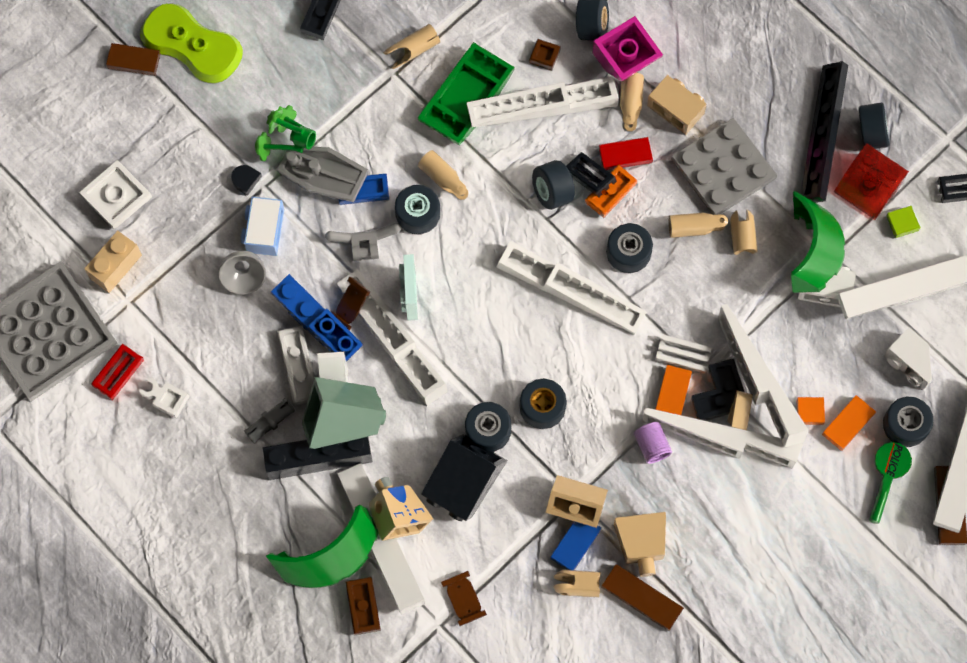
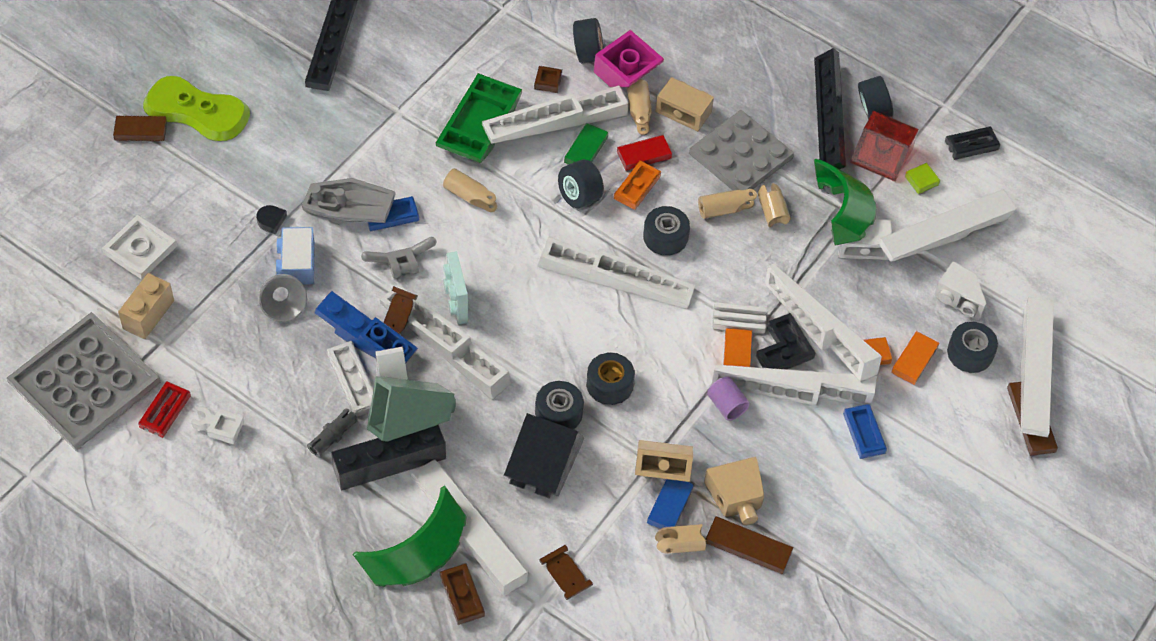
camera: 15 degrees left, 15 degrees down
(282, 119) = (302, 158): plant -> none
(397, 511) = (483, 494): tan torso -> none
(415, 44) = (422, 82): tan piece -> none
(417, 218) = (450, 222): black wheel -> none
(568, 139) = (586, 144): none -> green tile
(601, 185) = (613, 176): black tile -> none
(740, 410) = (808, 355): tan piece -> none
(780, 494) = (864, 431): none -> blue tile
(892, 462) = (967, 386): green piece -> none

